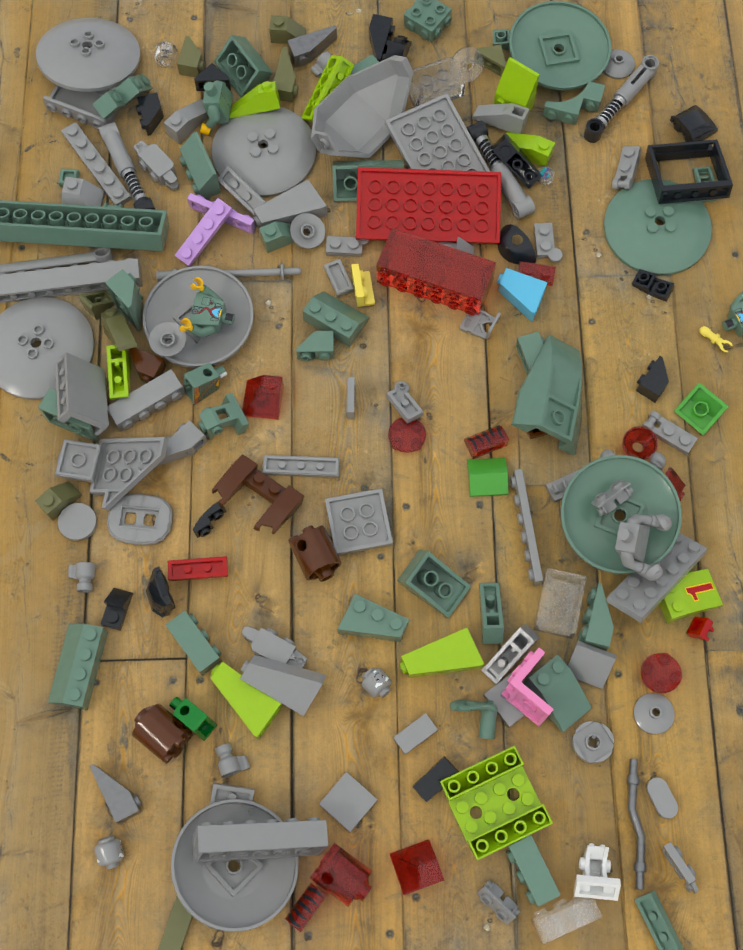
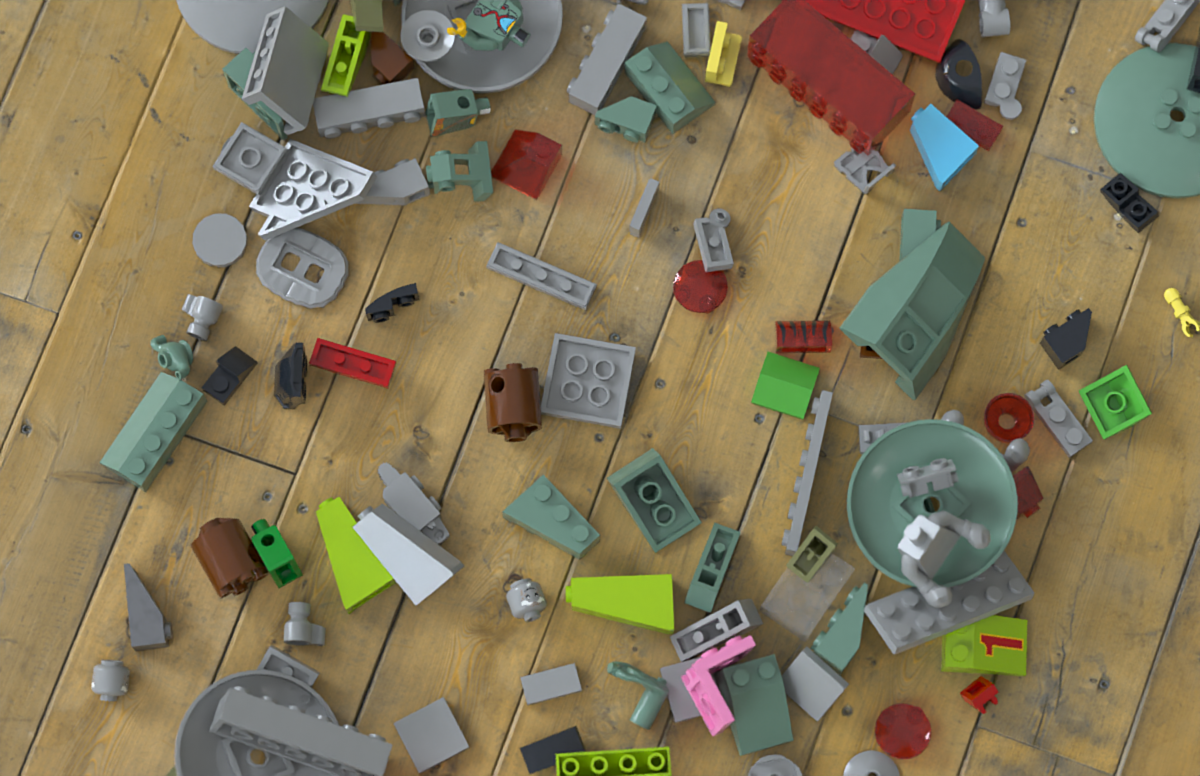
camera: 20 degrees right, 5 degrees up
(57, 499) = (205, 200): olive slope -> none
(73, 609) = (173, 355): none -> sand green piece
(194, 642) = (313, 457): sand green brick -> none
(245, 472) = (500, 314): reddish brown wedge -> none
(289, 315) = (607, 59): none -> light grey brick
(556, 577) = (812, 554): none -> olive slope

